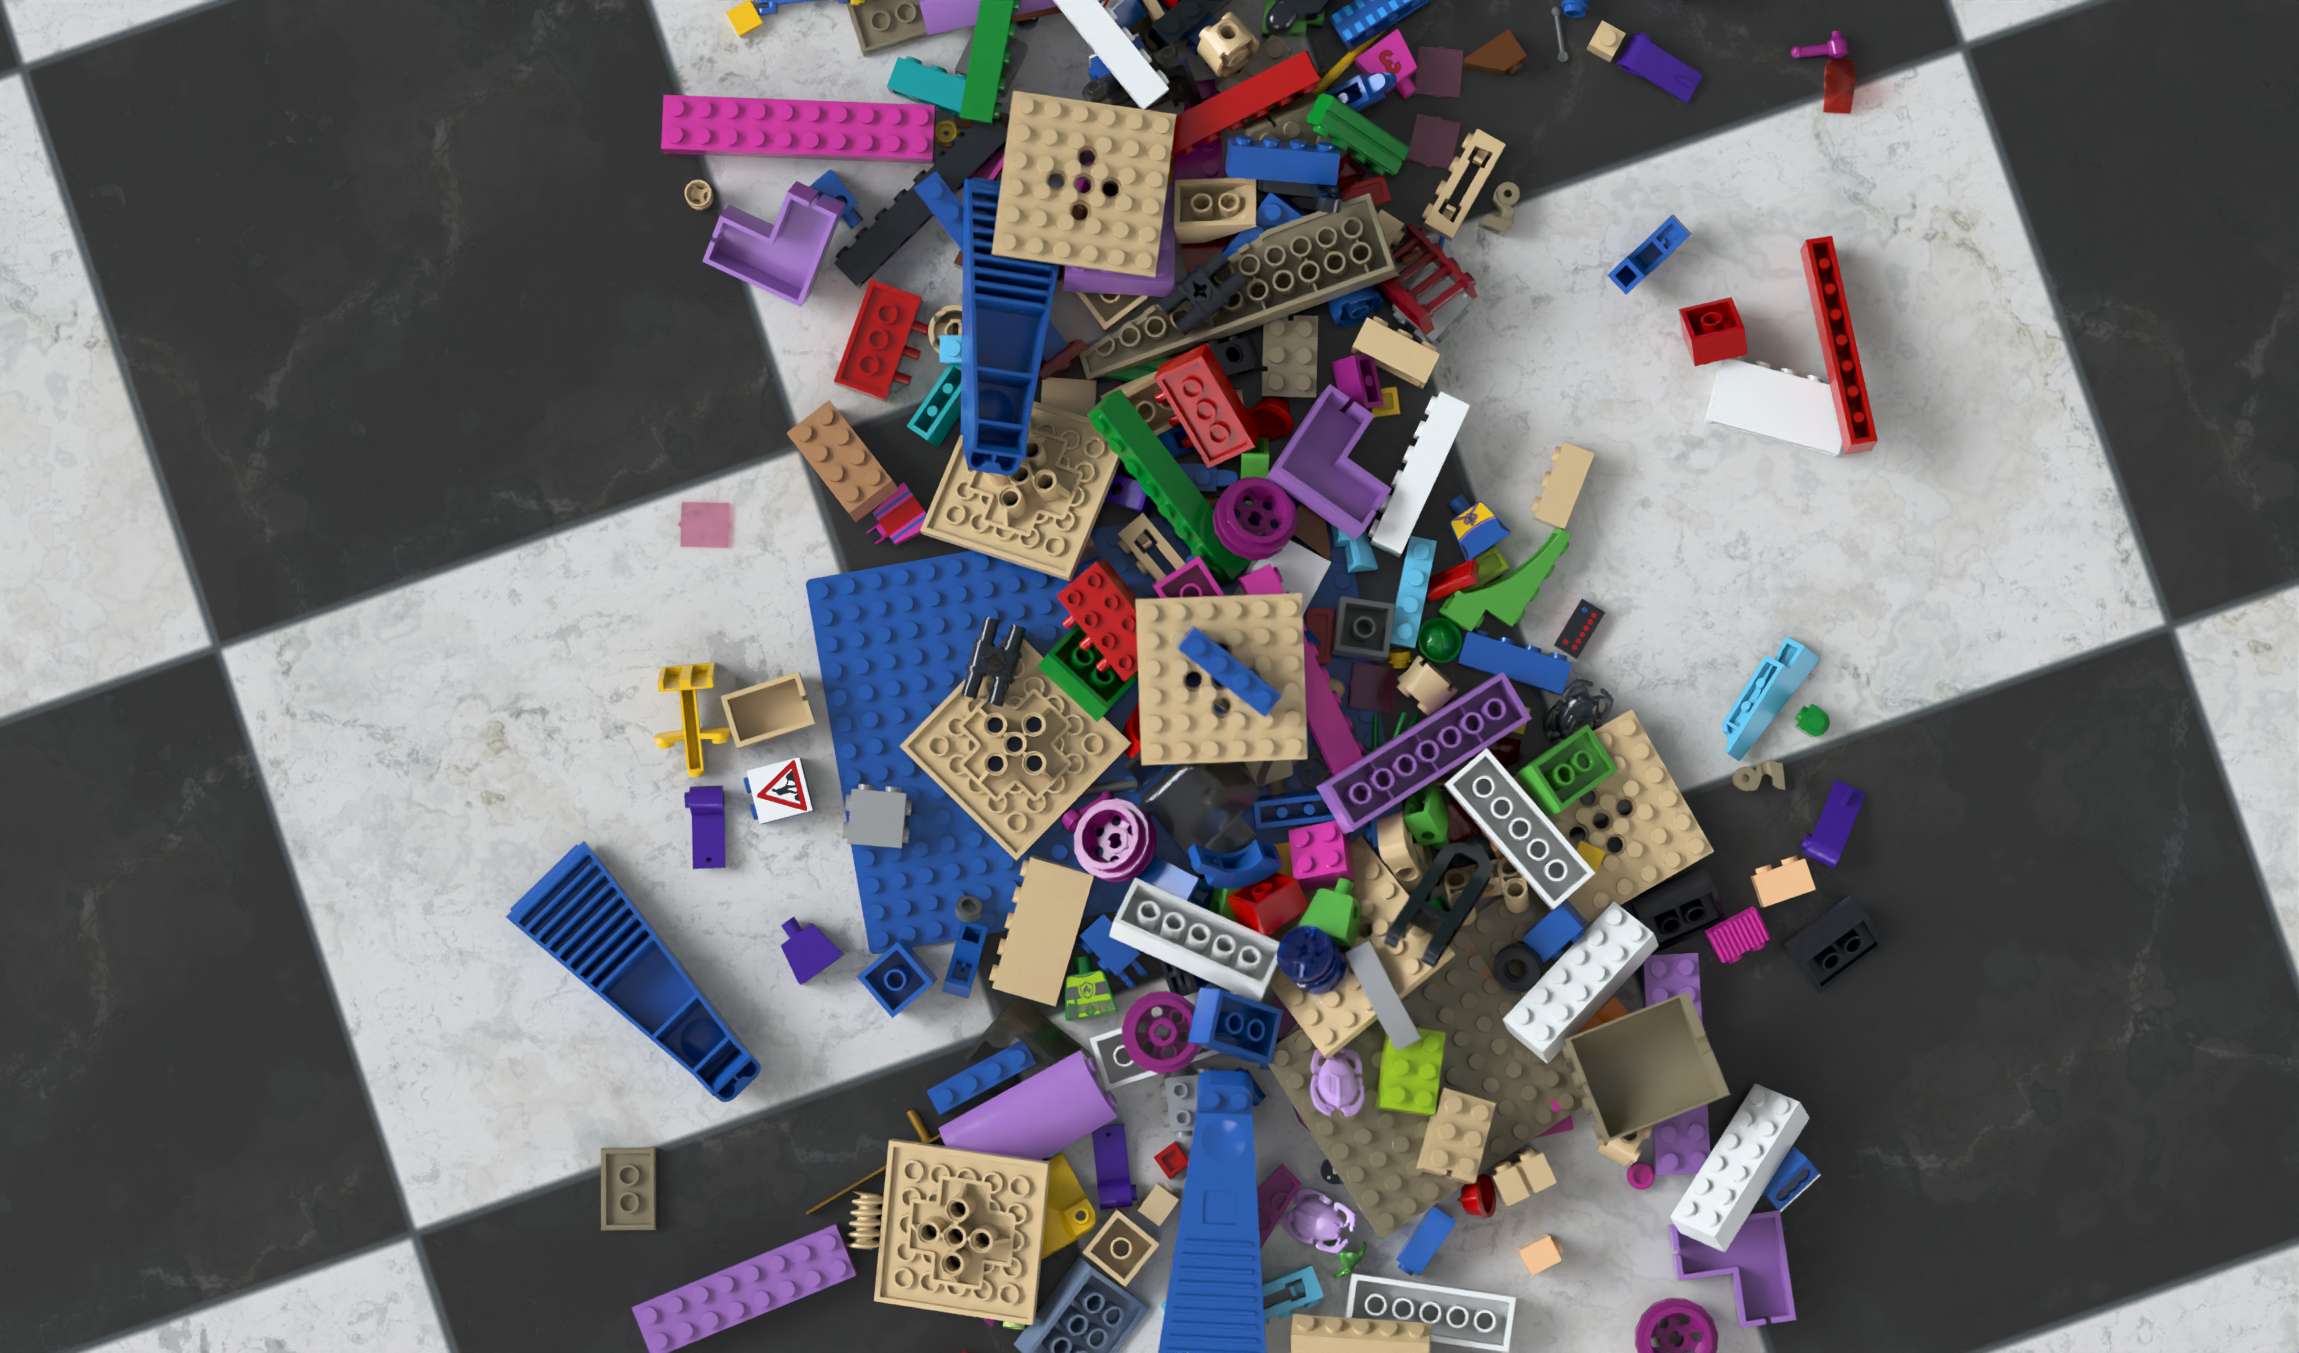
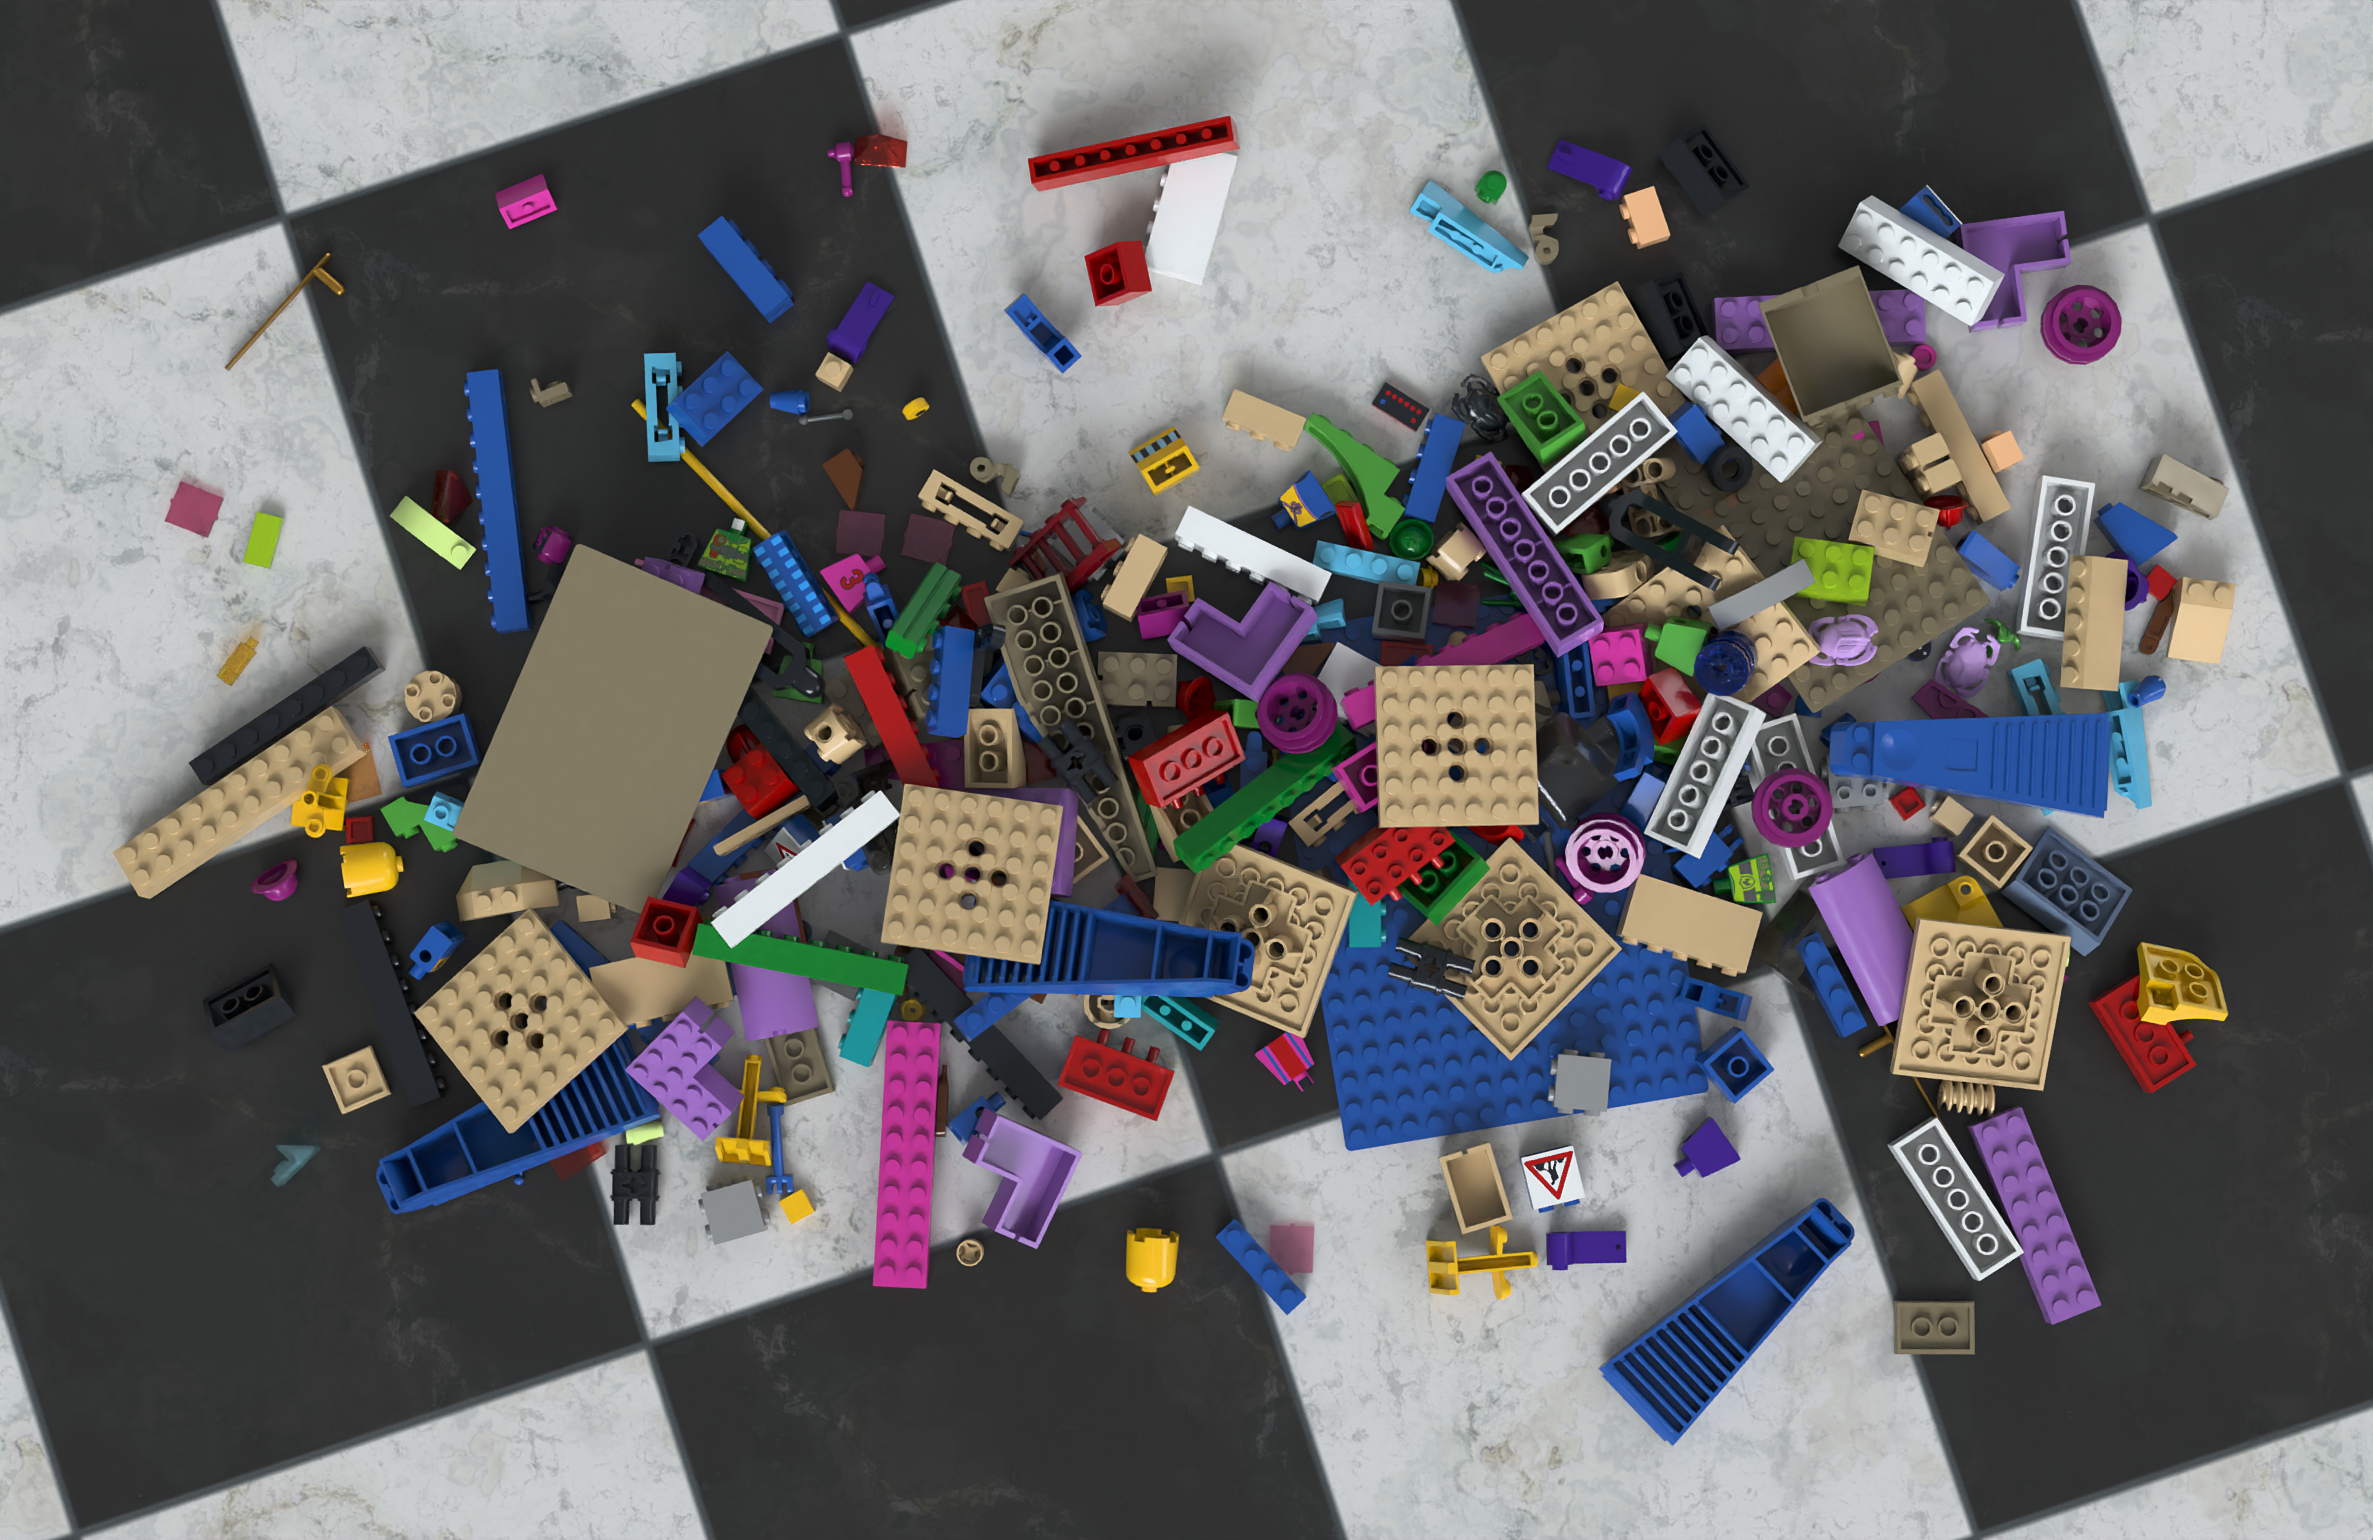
camera: 90 degrees left, 0 degrees up
(686, 491) = (1260, 1266): none -> blue brick
(694, 379) = (1151, 1258): none -> yellow cylinder
(761, 1208) = (1955, 1198): none -> white brick
(842, 461) = (1234, 1113): medium nougat brick -> none
(846, 164) = (942, 1104): none -> reddish brown piece
(968, 909) = (1668, 995): dark grey tile -> none
(1039, 594) = (1365, 922): none -> teal brick
(1229, 671) = (1452, 737): blue brick -> none
(1235, 1025) = (1788, 737): blue brick -> none
(1518, 382) = (1164, 461): none -> yellow slope
(1546, 1211) = (1941, 414): none -> tan brick
(1569, 125) = (915, 408): none -> yellow tile
(1738, 935) = (1696, 260): dark pink brick -> none

